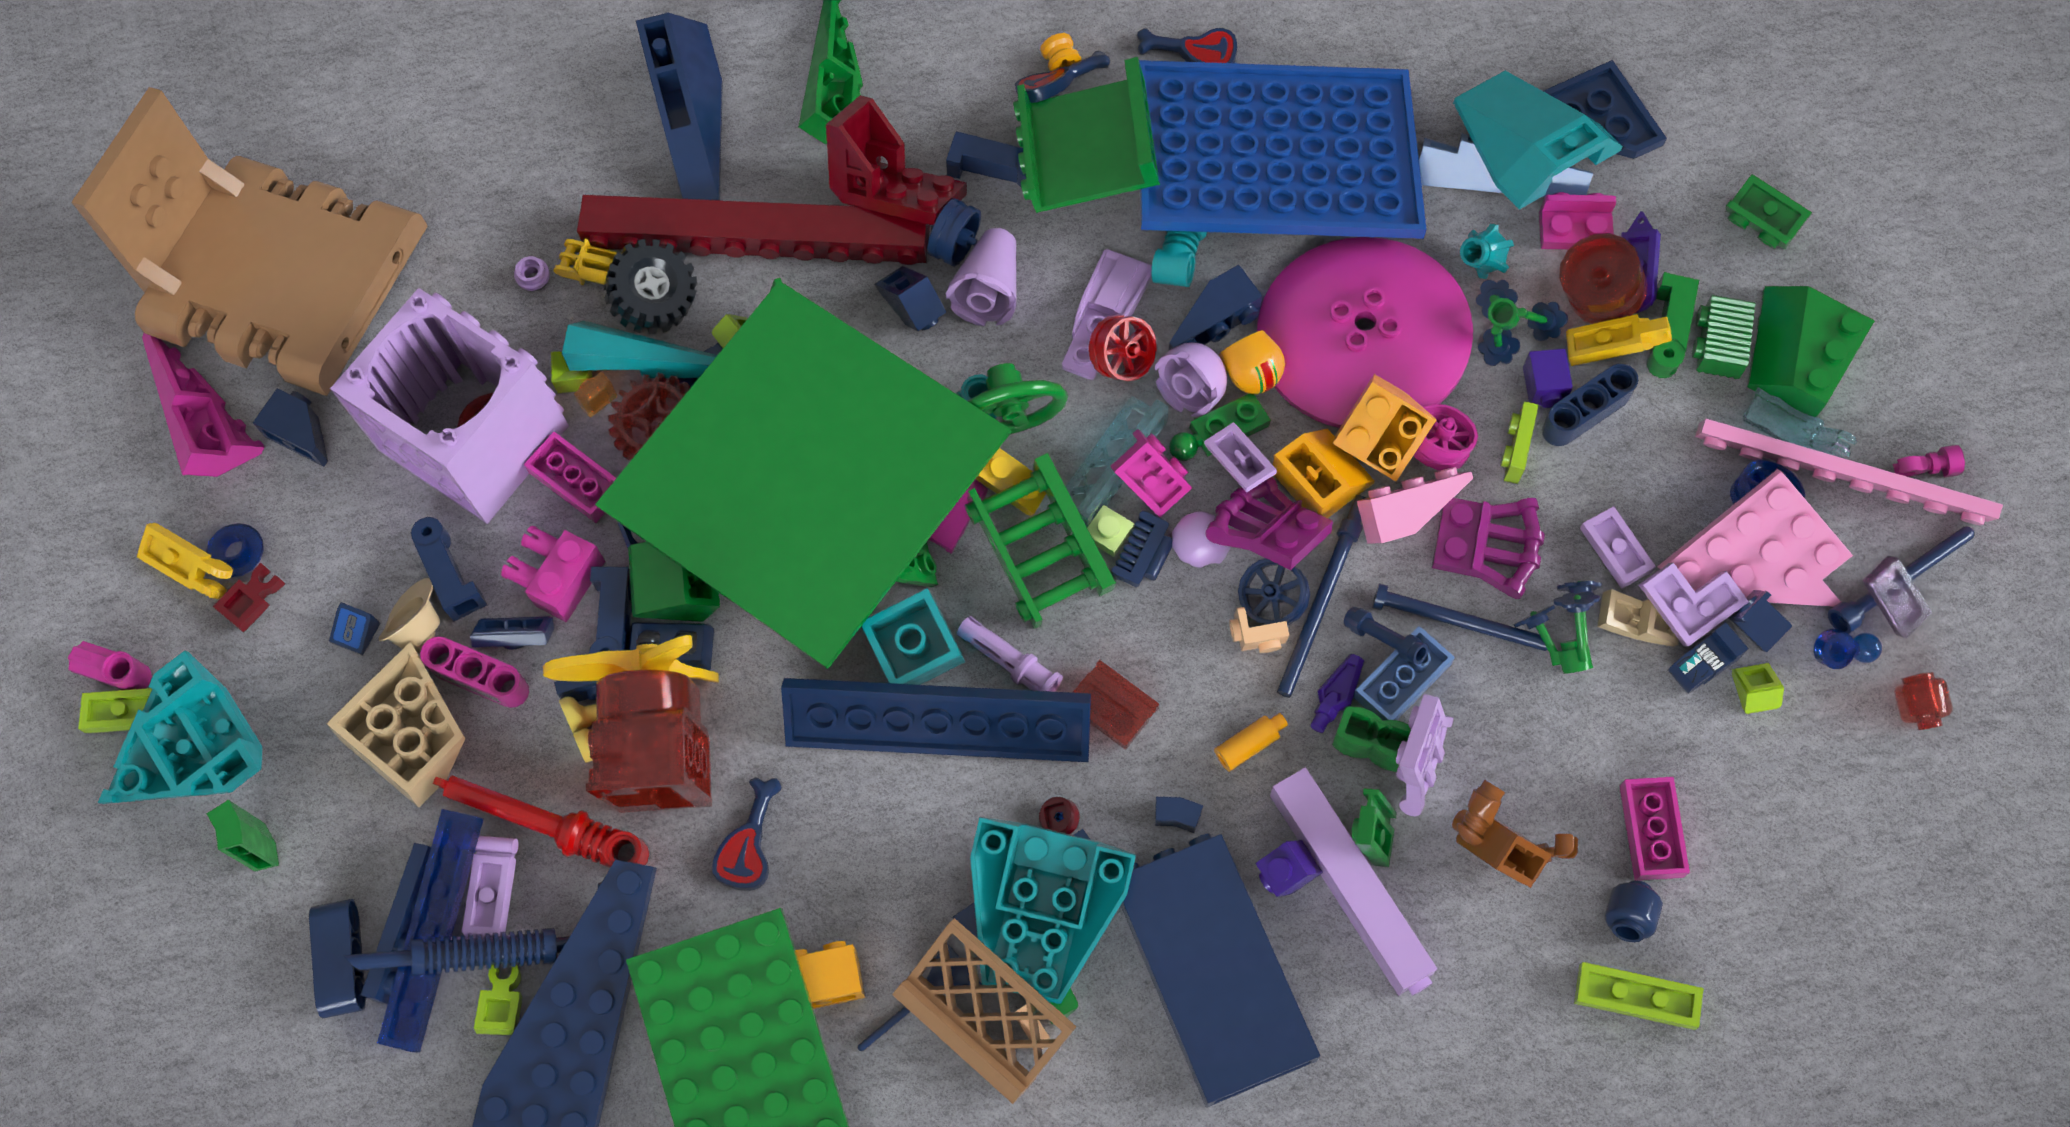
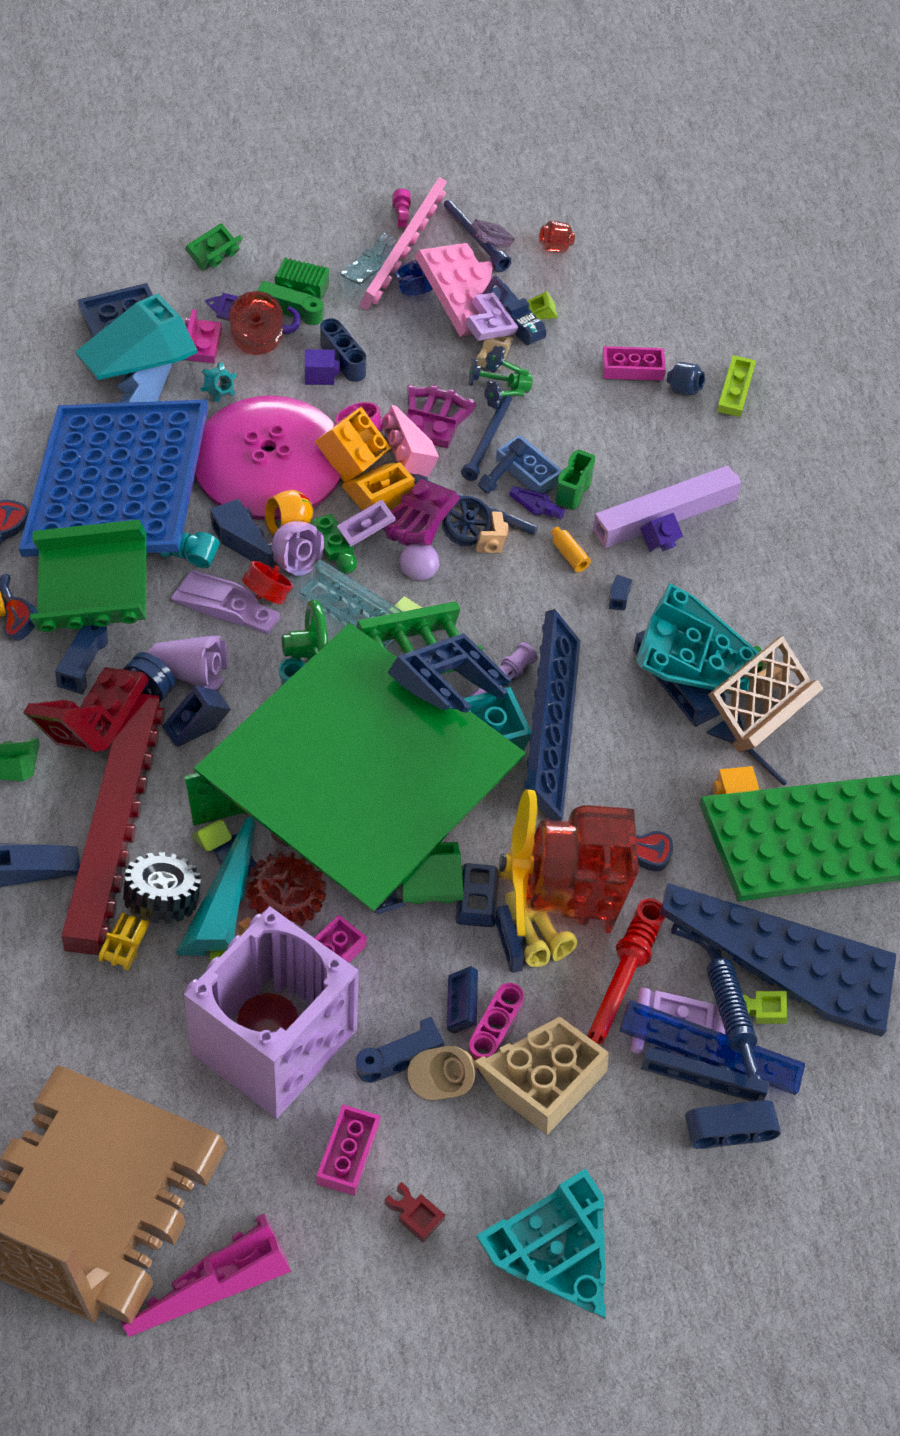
camera: 95 degrees left, 15 degrees down
(109, 666) = (473, 1329): dark pink piece -> none
(111, 709) = (515, 1317): lime plate -> none
(182, 561) = (375, 1270): yellow hinge -> none
(243, 837) = (642, 1181): green piece -> none
(248, 556) = (365, 1246): clear blue piece -> none
(293, 424) = (251, 1178): dark blue slope -> none
(325, 522) = (348, 1150): none -> dark pink piece
(353, 628) = (448, 1126): slope -> none
(526, 267) = (123, 983): lavender plate -> none
(562, 576) = (415, 958): dark pink brick -> none
(614, 608) = (455, 928): dark blue leg -> none
(996, 578) = (420, 672): none -> dark blue wedge
(1059, 815) = (621, 656): dark red tile -> none
(1116, 704) = (530, 620): clear red plate -> none
(1151, 474) = (371, 572): dark pink bracket -> none
(1152, 555) = (422, 589): dark blue piece -> none
(1215, 970) = (734, 575): dark blue brick -> none
(1373, 828) = (636, 482): green plate -> none
(1421, 752) = (594, 442): lavender plate -> none
(1500, 308) = (277, 365): dark blue plant -> none
(1500, 844) = (644, 427): dark orange torso -> none
(1515, 456) = (366, 386): lime plate -> none
(1615, 338) = (297, 328): yellow hinge -> none
(1617, 547) = (445, 352): lavender plate -> none
(1804, 346) = (317, 240): green wedge -> none
(1863, 647) = (519, 266): clear blue plate -> none

